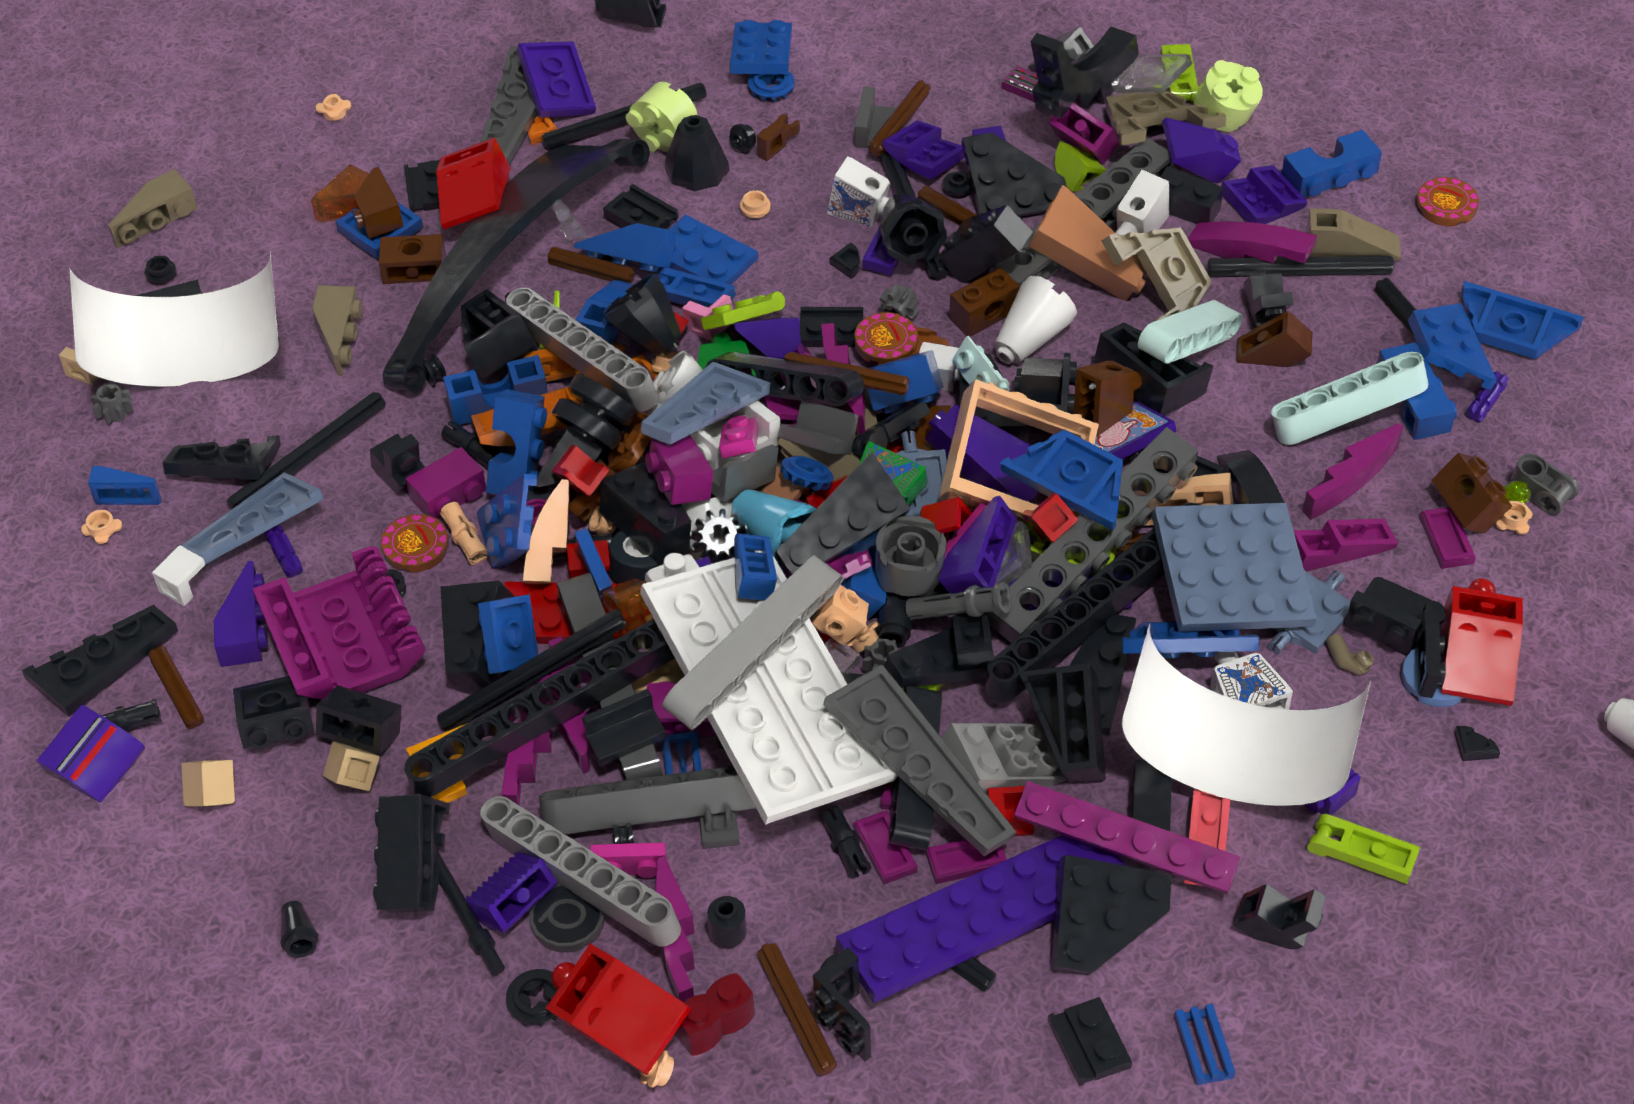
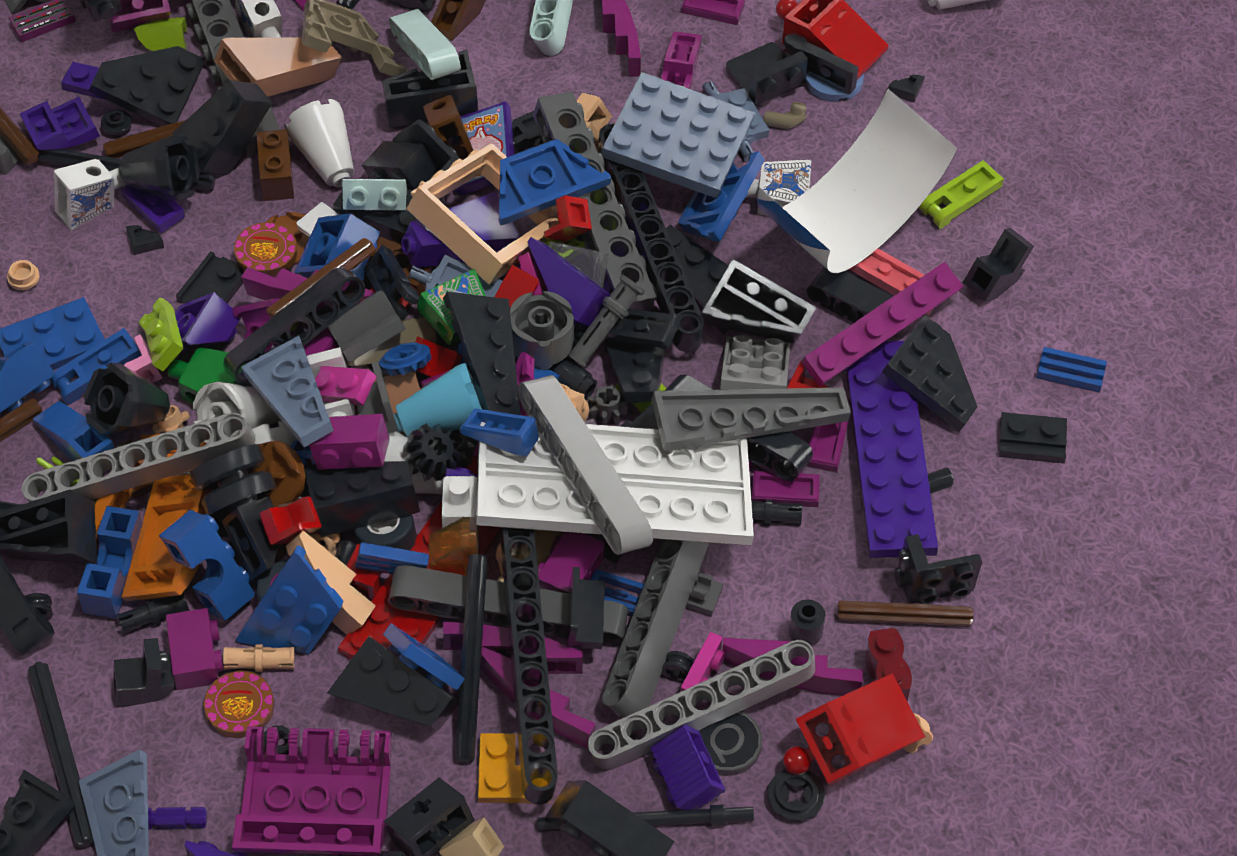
camera: 65 degrees left, 5 degrees up
(899, 301) = (230, 222): dark grey gear -> none
(1250, 479) = (610, 86): black slope -> none

